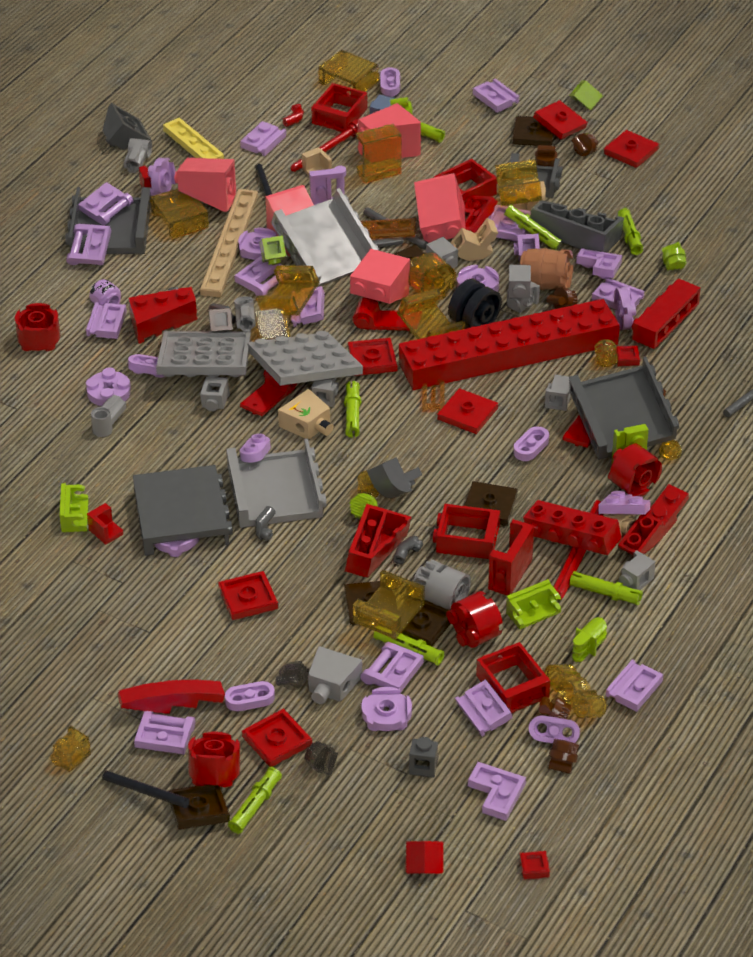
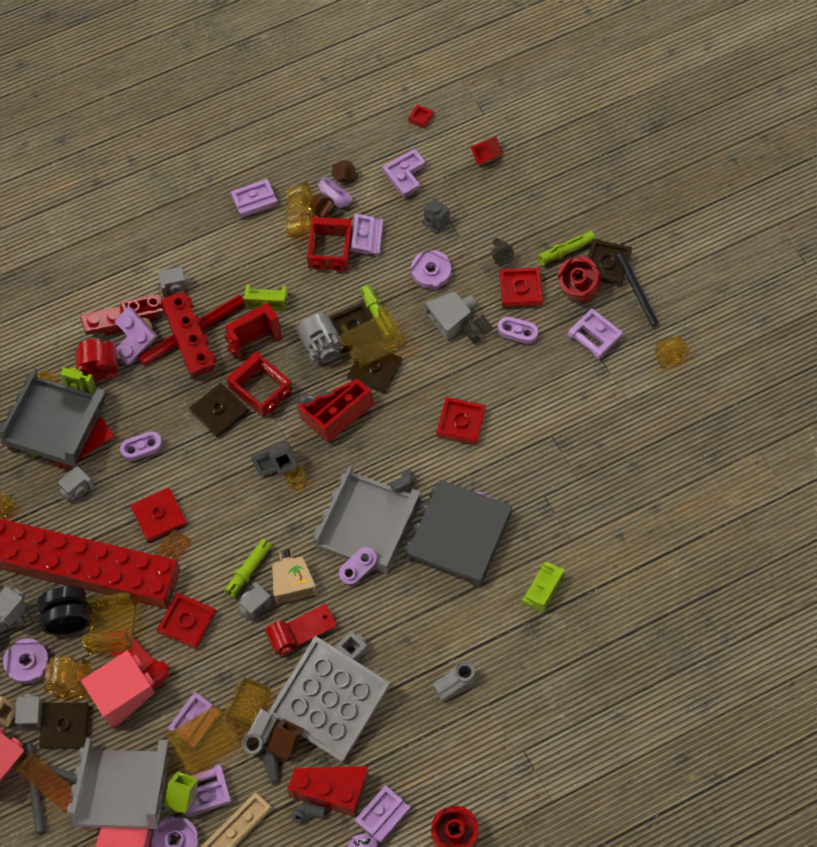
camera: 145 degrees left, 20 degrees up
(100, 386) = (443, 729): lavender plate -> none
(102, 525) = (528, 555): red panel -> none
(143, 364) = (382, 726): lavender plate -> none
(163, 695) = (575, 355): red slope -> none
(304, 358) = (251, 635): light grey plate -> none
(359, 502) = (317, 453): lime piece -> none
(398, 671) = (401, 294): lavender plate -> none
(475, 620) = (321, 293): red brick -> none
(589, 639) = (254, 246): lime arm -> none
(610, 589) = (200, 277): lime pin -> none

